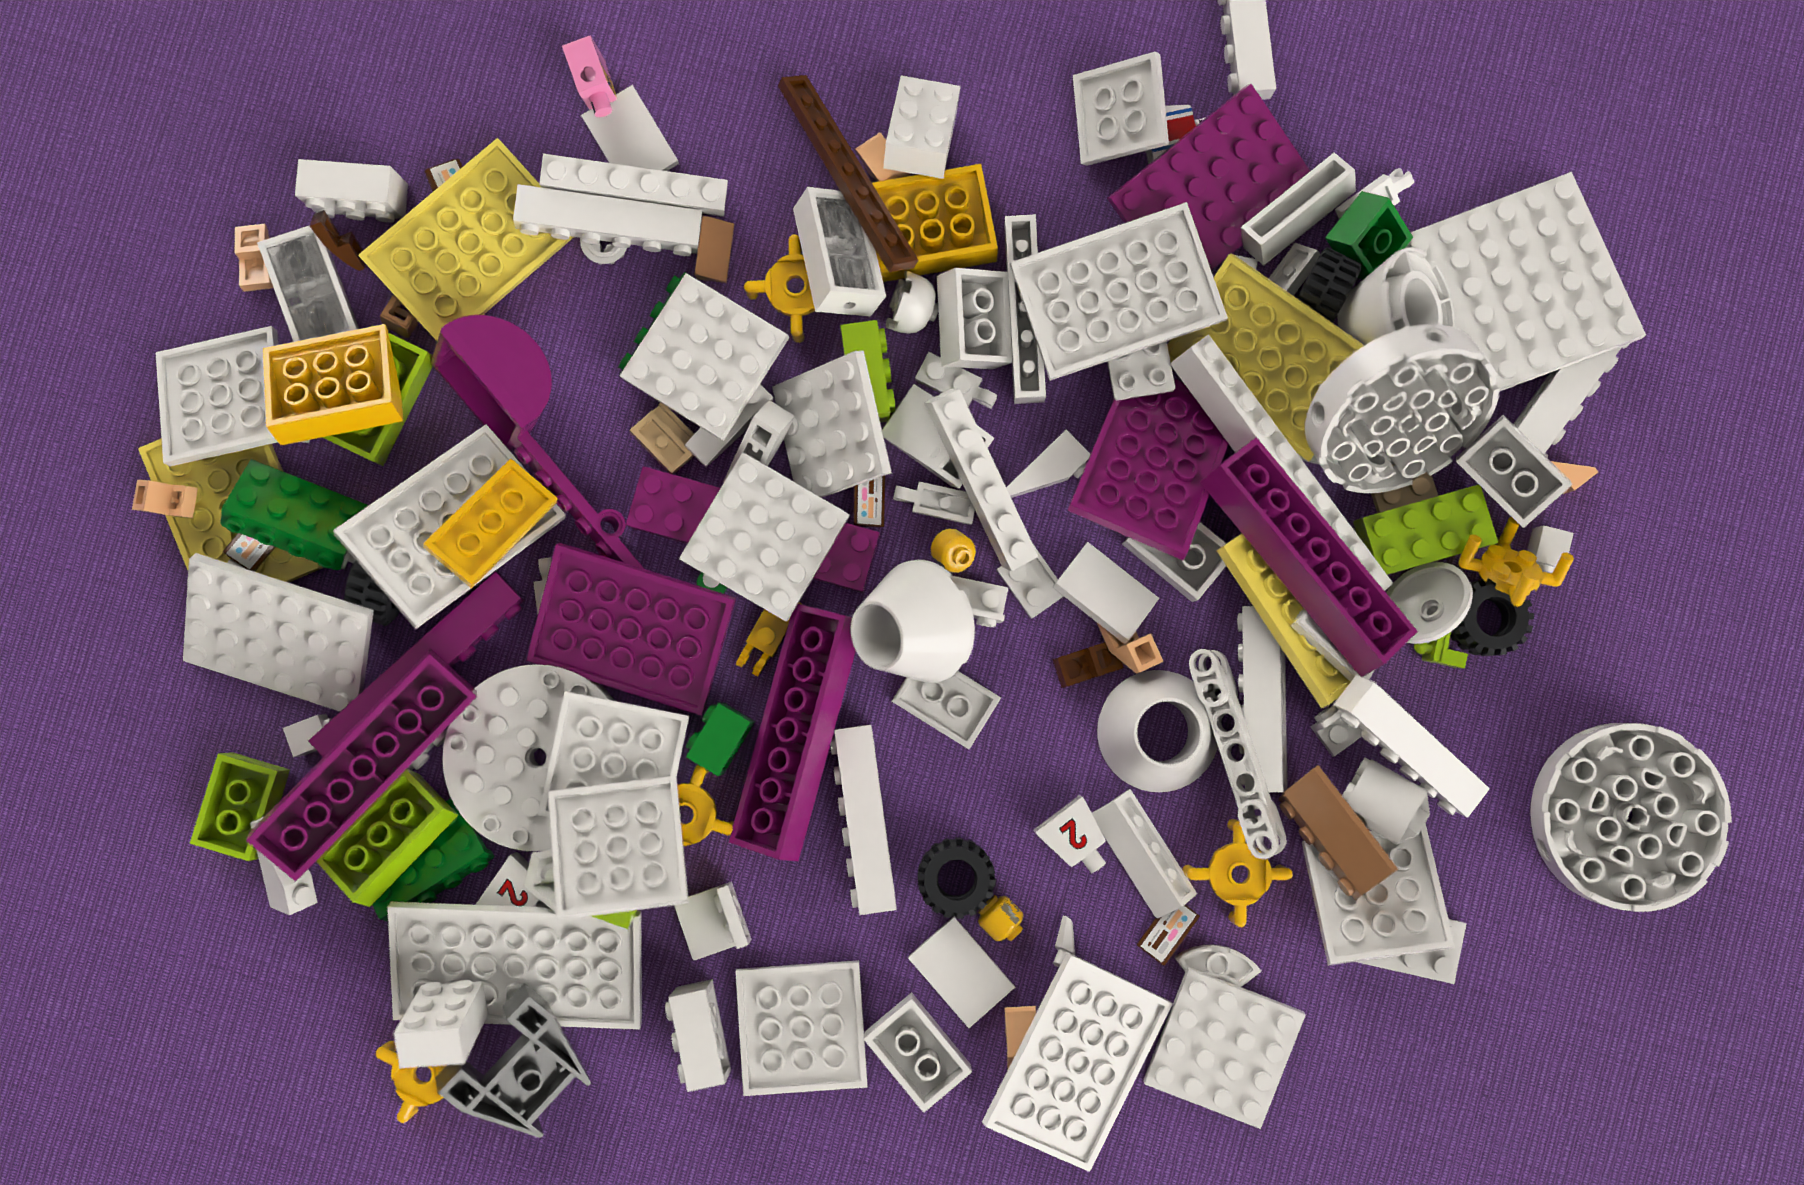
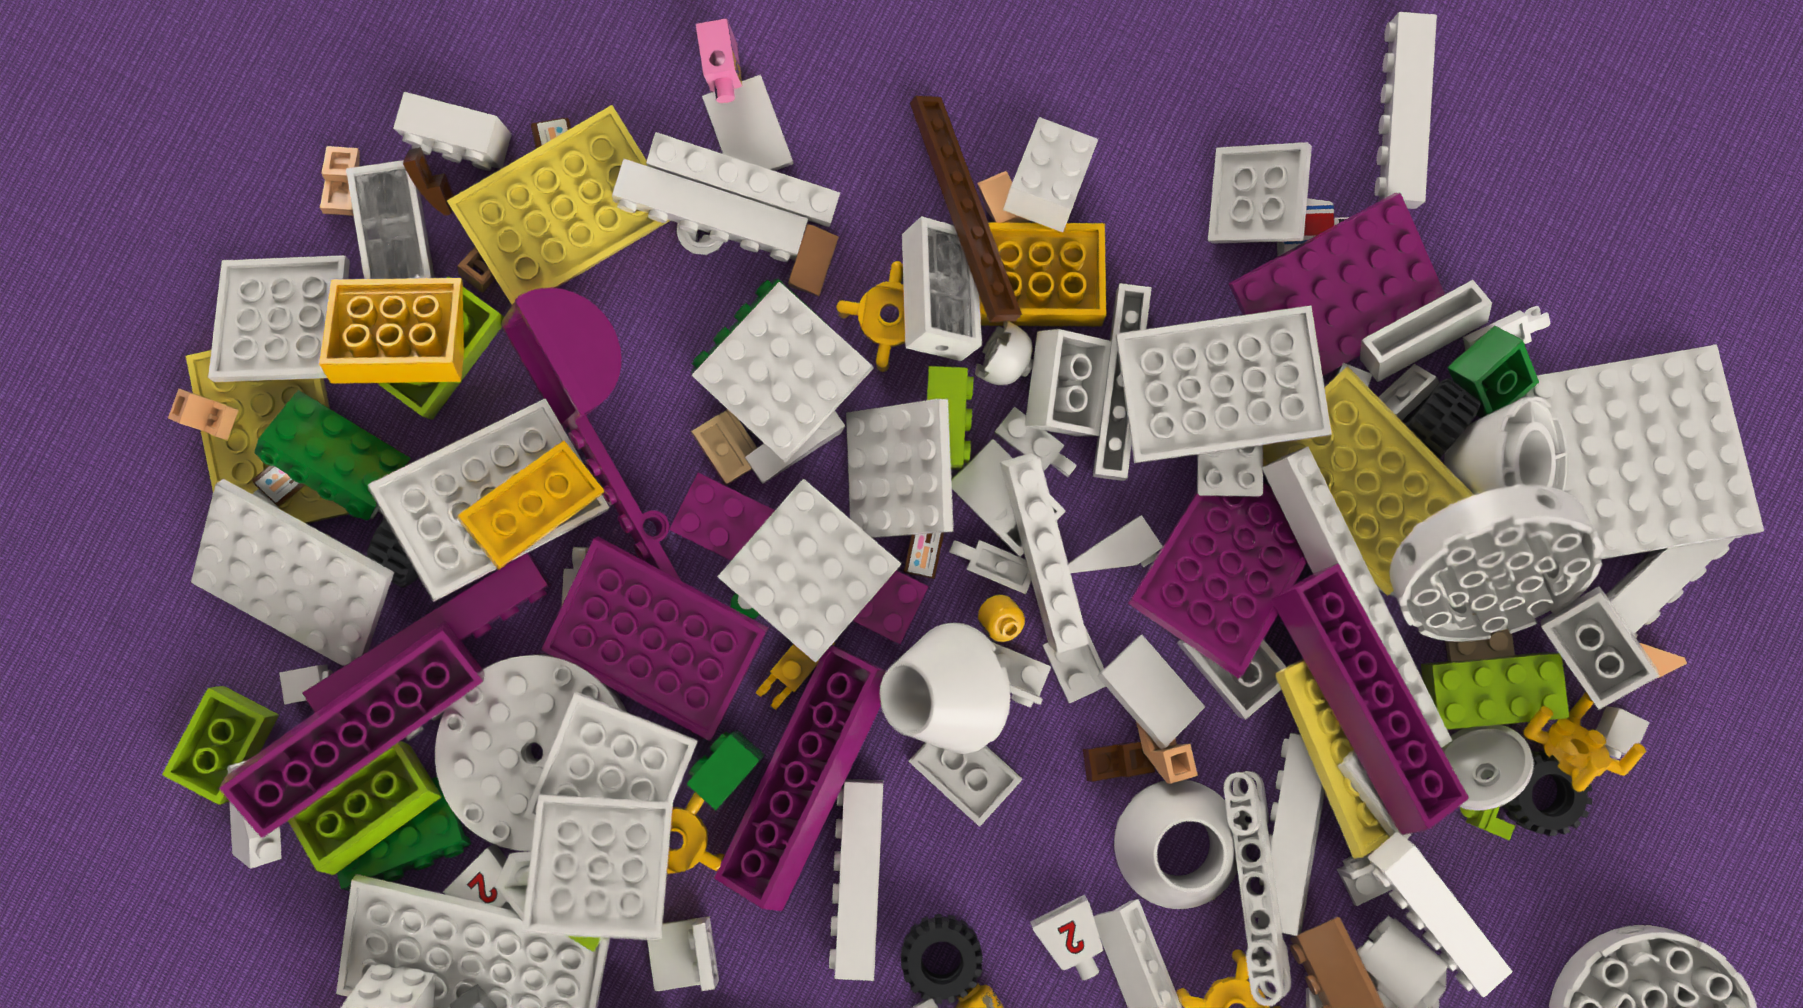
camera: 15 degrees right, 0 degrees up
(764, 434) = (828, 464): white slope -> none

